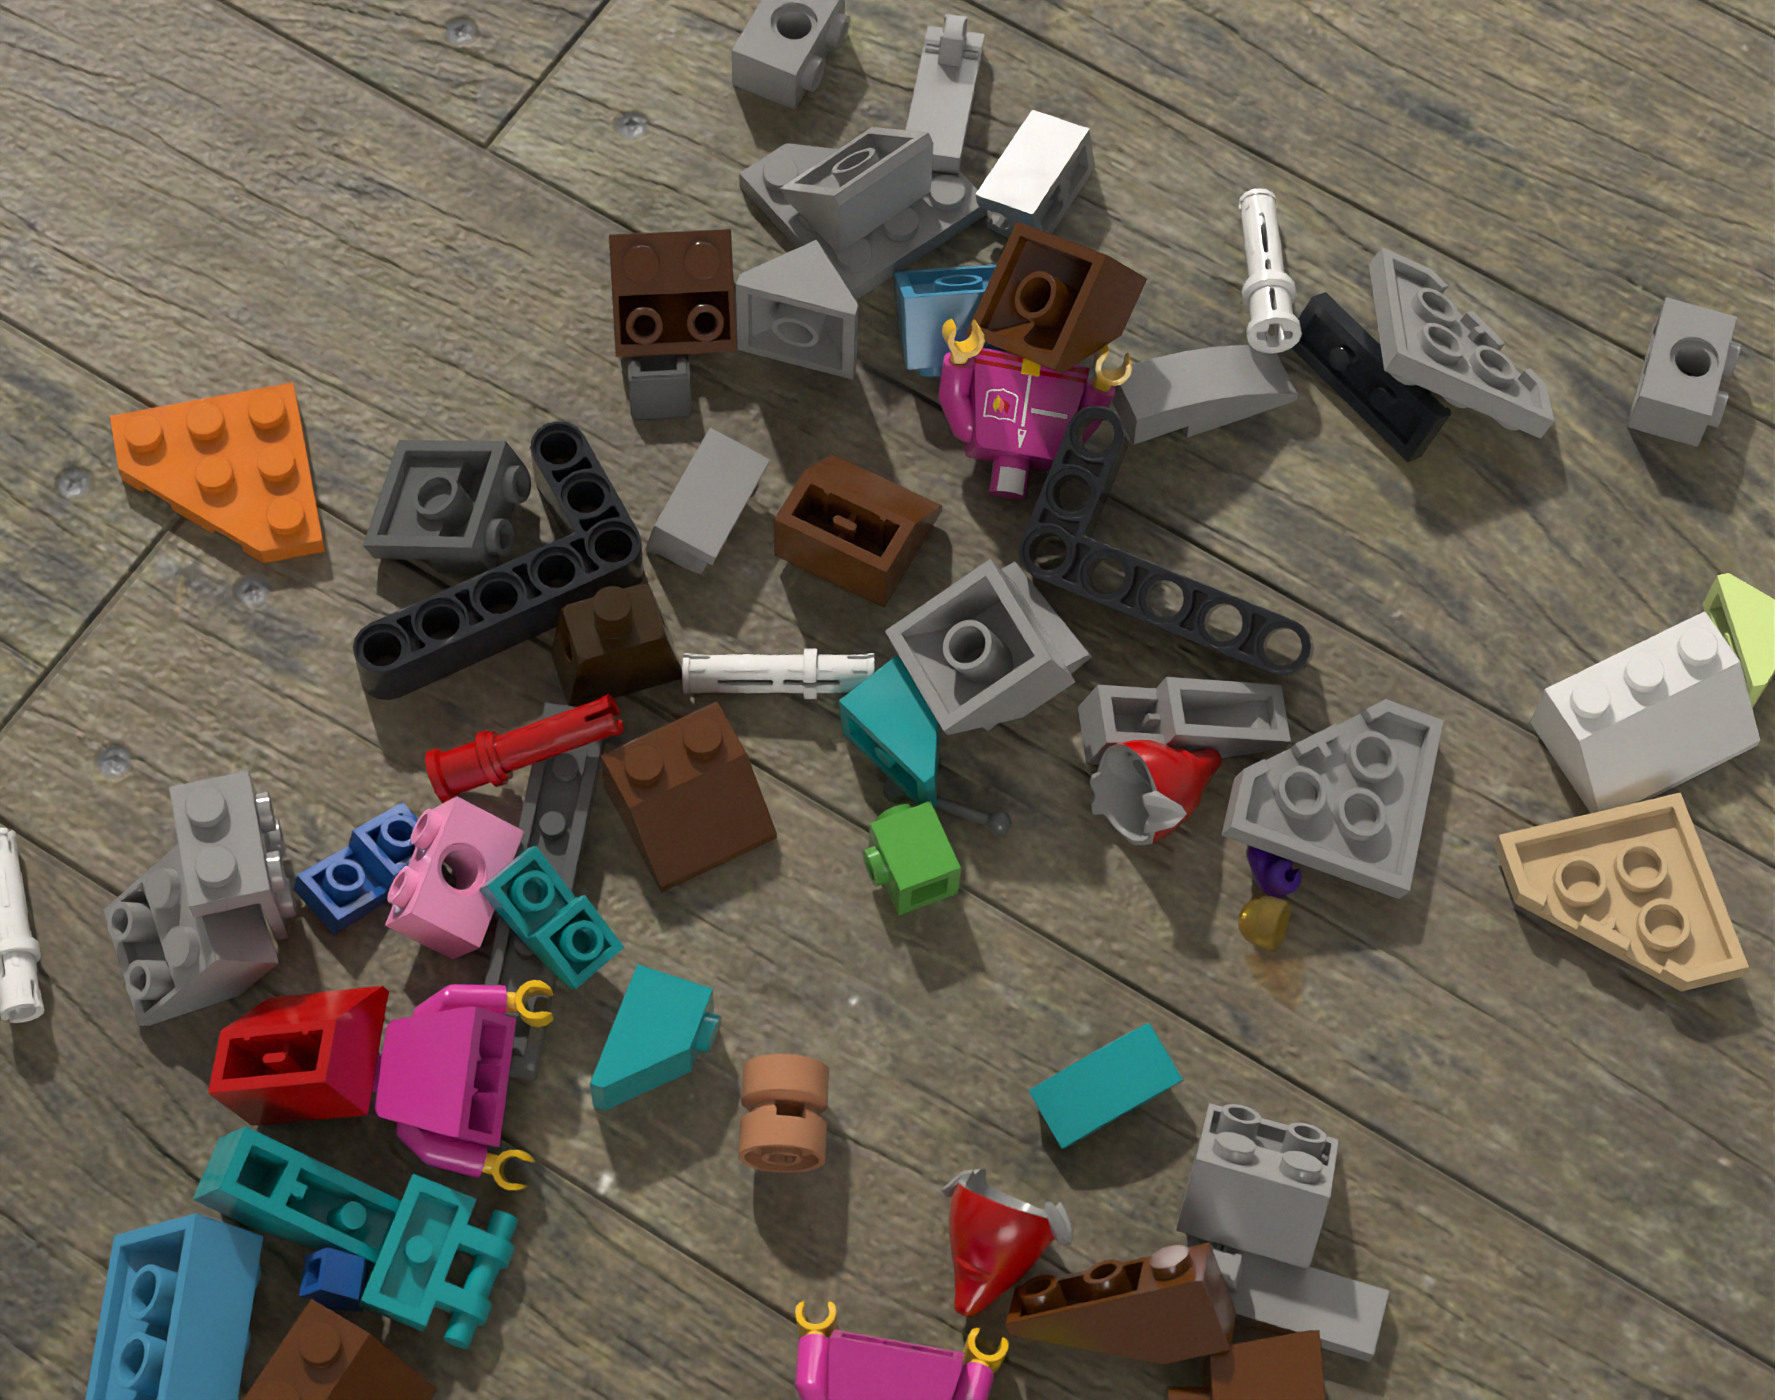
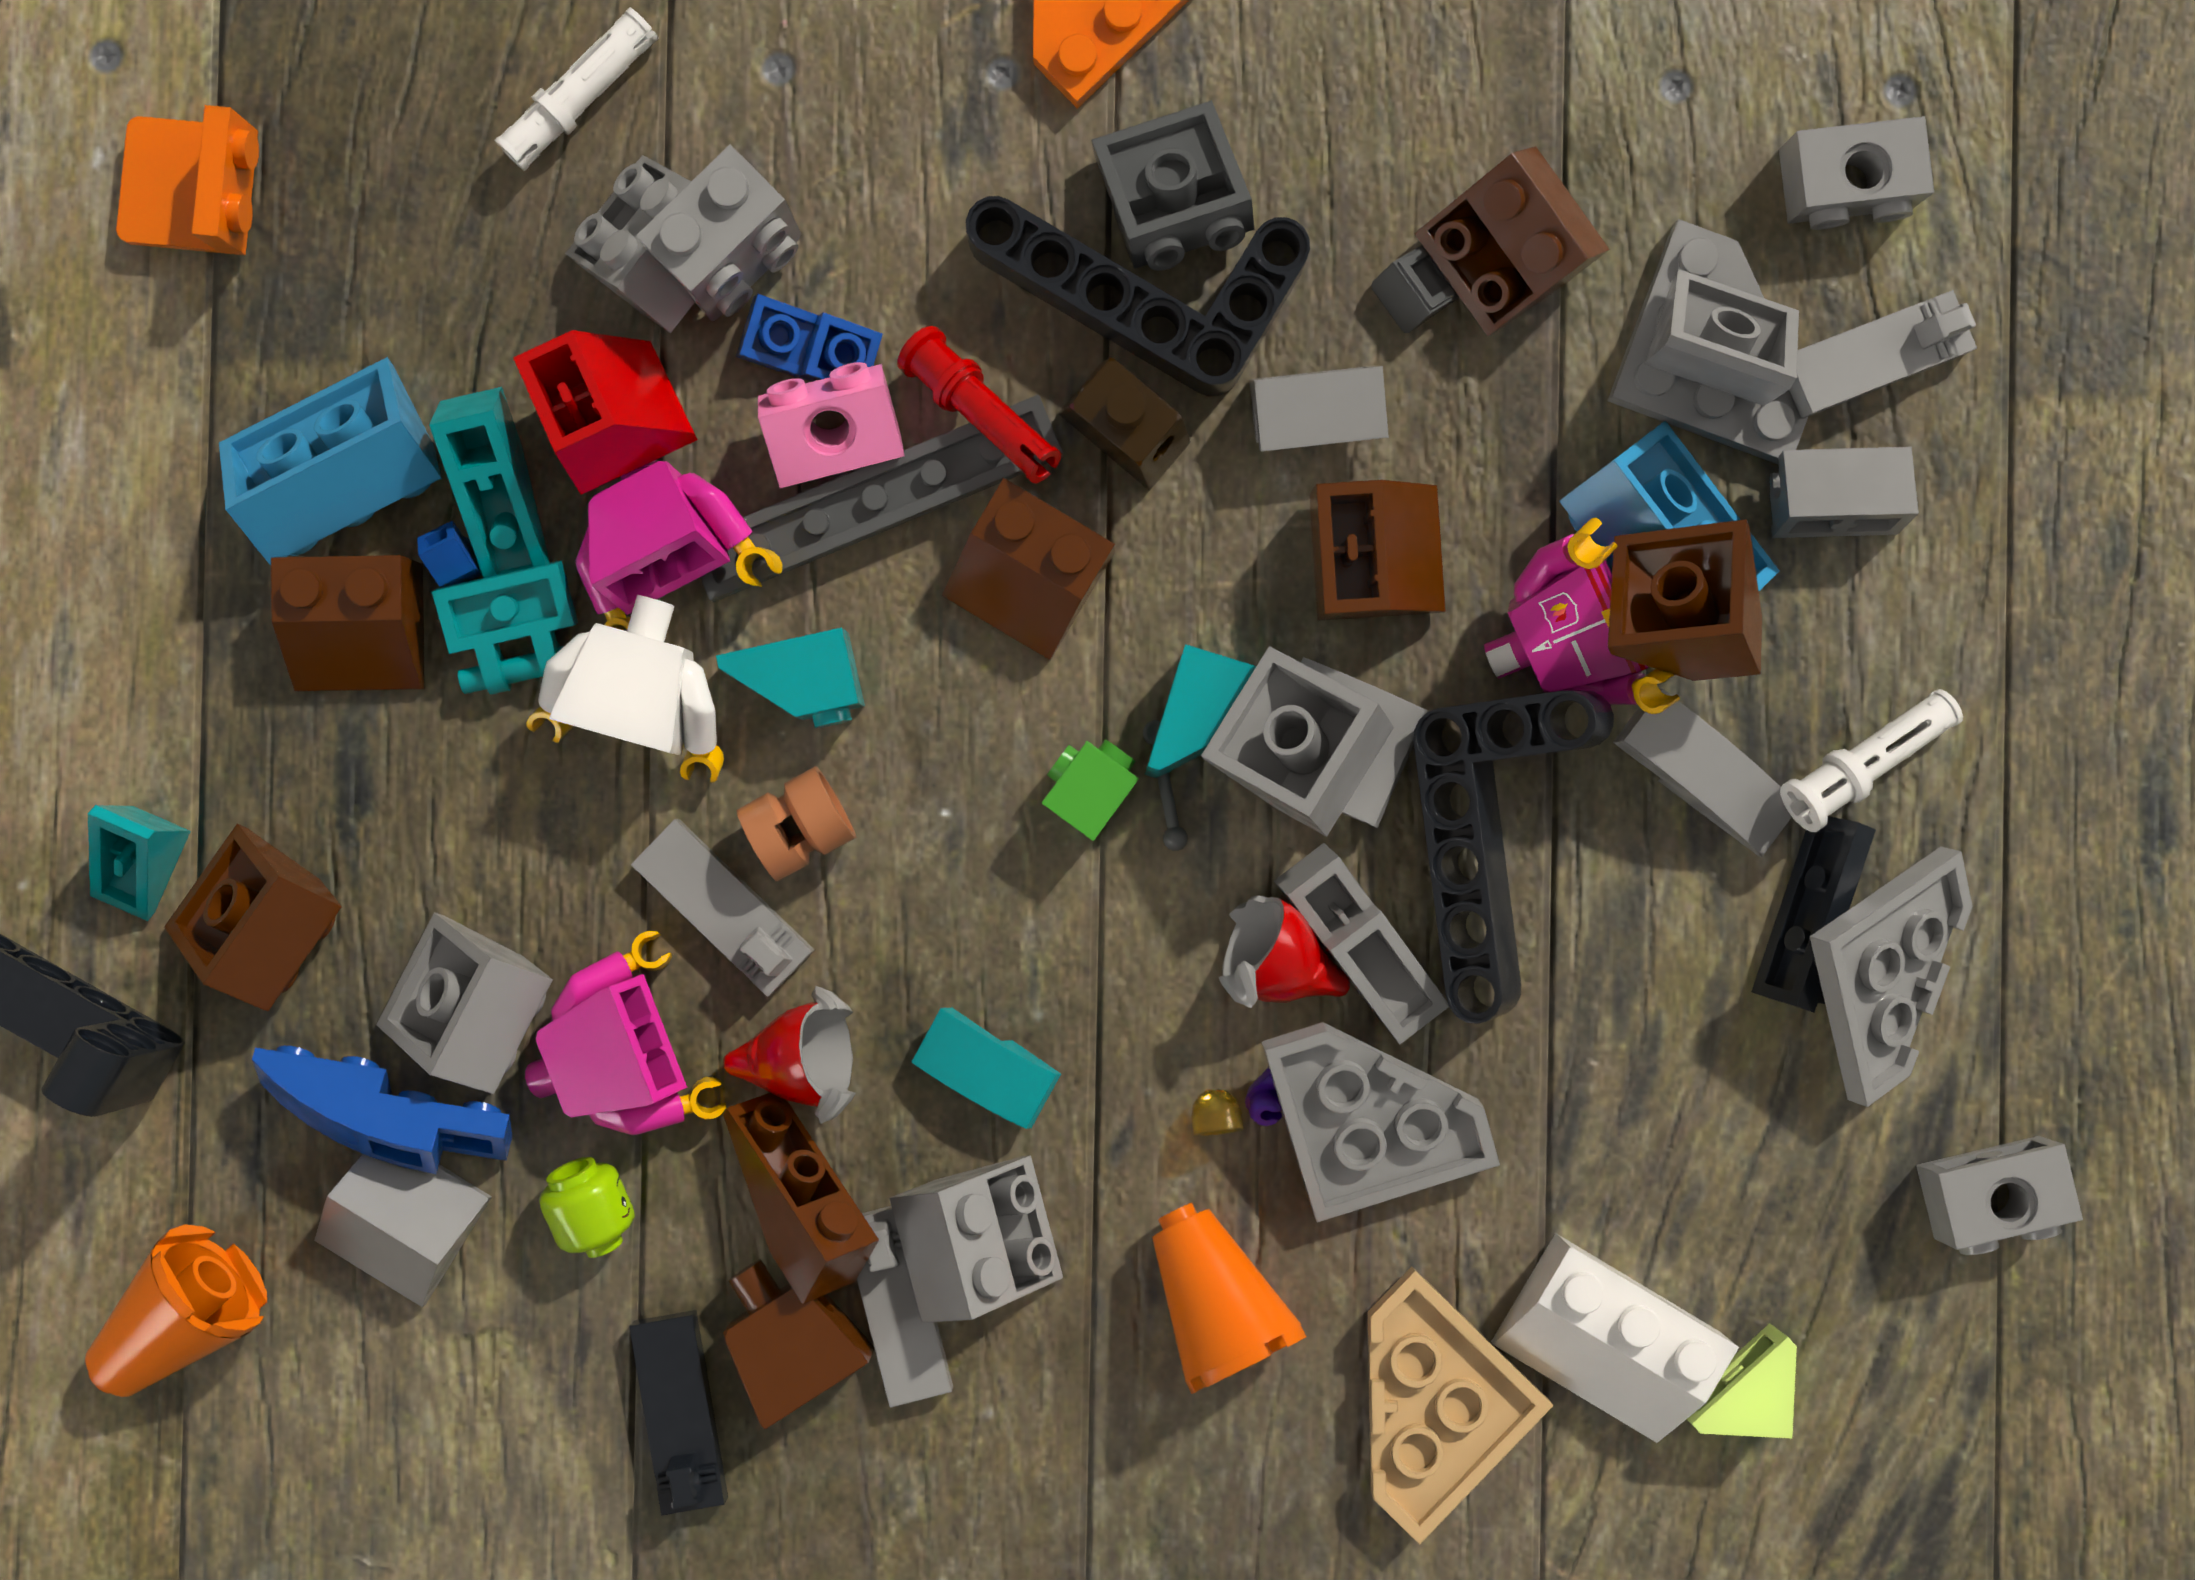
camera: 65 degrees right, 25 degrees up
(549, 918) = (841, 529): teal slope -> none
(570, 1172) = (633, 689): none -> white torso
(775, 673) = (1186, 559): white pin -> none
(799, 312) = (1551, 369): light grey slope -> none
(816, 1235) = (722, 907): none -> light grey hinge
(1432, 1003) = (1217, 1299): none -> orange cone

